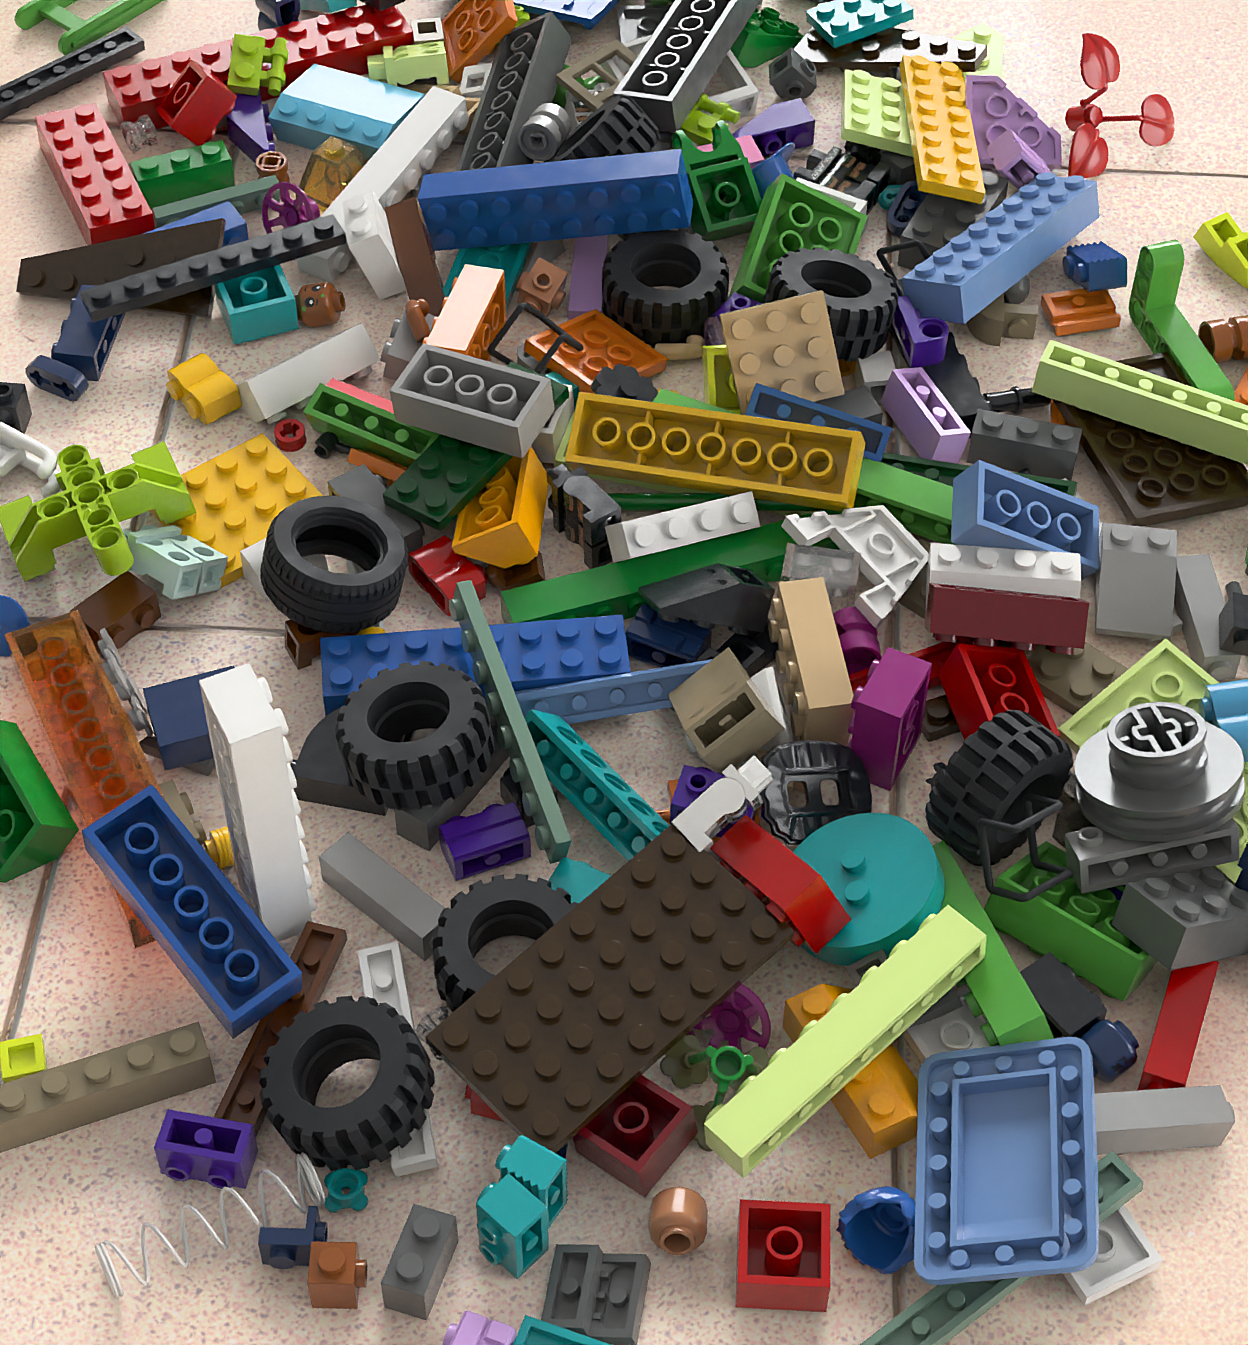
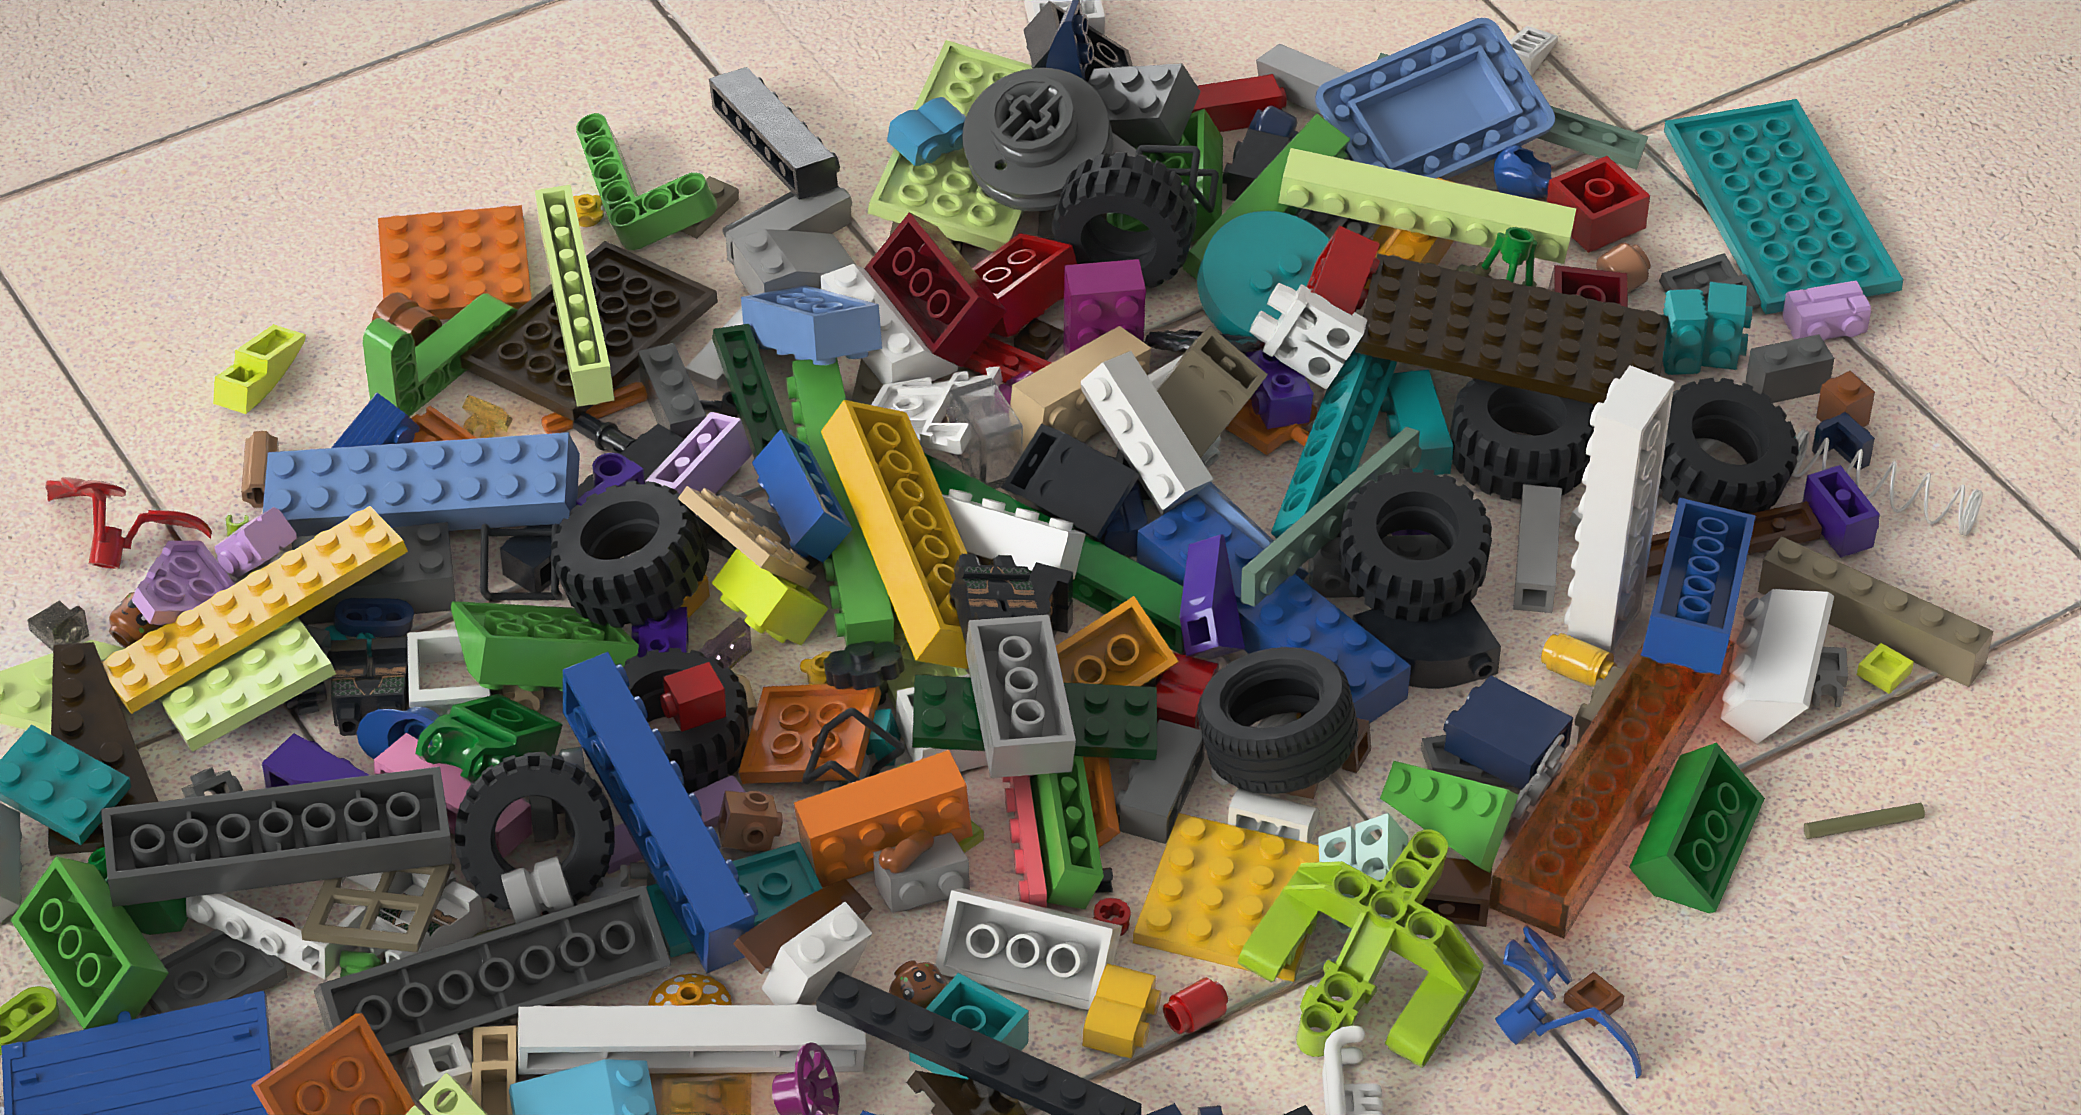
camera: 125 degrees left, 5 degrees down
(64, 1014) = (1831, 675): none -> light grey plate
(93, 954) = (1776, 660): none -> white slope
(161, 628) = (1462, 810): none -> bright green wing
(167, 424) = (1195, 1006): none -> red brick
(499, 598) = (1209, 602): none -> dark purple slope
(578, 438) = (991, 590): none -> black hips
(643, 260) = (693, 697): none -> red brick
(696, 623) = (1145, 431): none -> white slope
(1027, 84) = (59, 625): none -> clear smoke bracket
(1091, 339) = (485, 414): none -> clear yellow tile
(1124, 217) = (255, 466): none -> medium nougat axle

